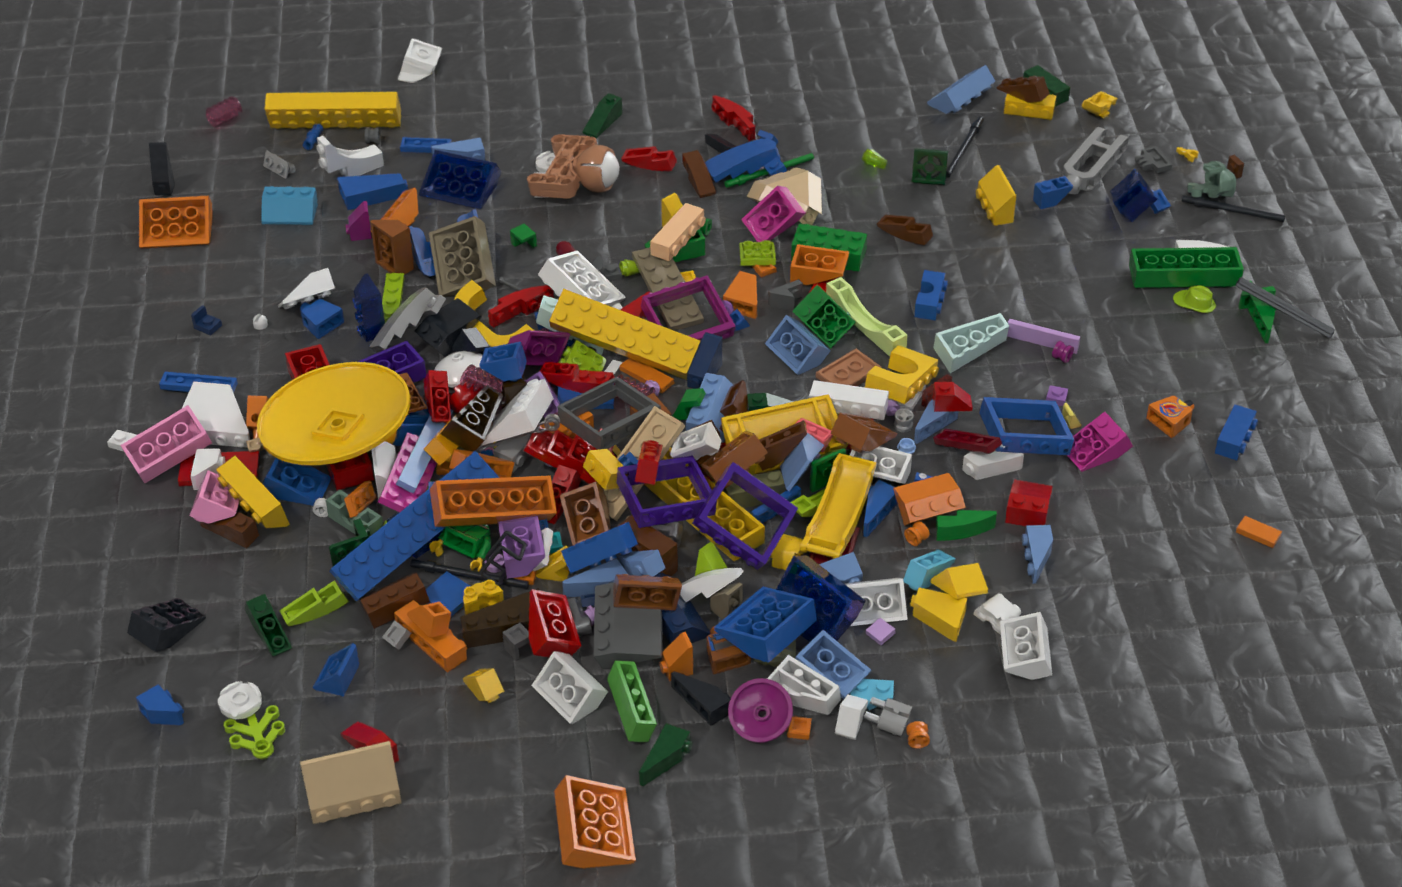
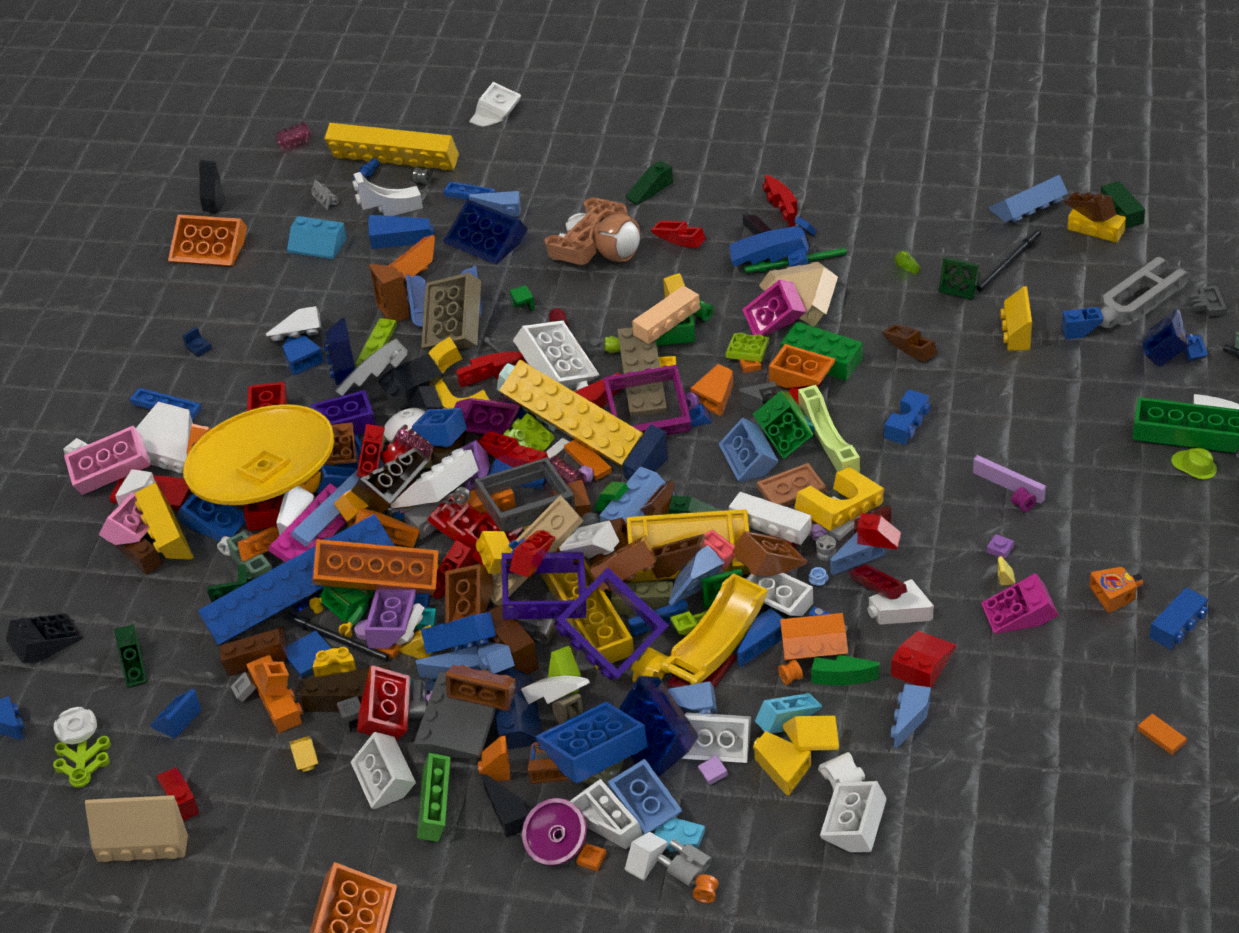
camera: 20 degrees right, 0 degrees up
(260, 322) = (246, 350): white hinge -> none
(314, 604) = (181, 642): lime slope -> none
(359, 223) = (373, 256): magenta slope -> none
(491, 560) = (356, 619): black piece -> none
(666, 753) = (447, 857): dark green slope -> none
(698, 173) = (720, 255): reddish brown slope -> none
(969, 341) = (928, 472): light aqua wedge -> none
(1032, 410) = (950, 556): blue window -> none
(1099, 104) = (1173, 232): yellow cylinder -> none

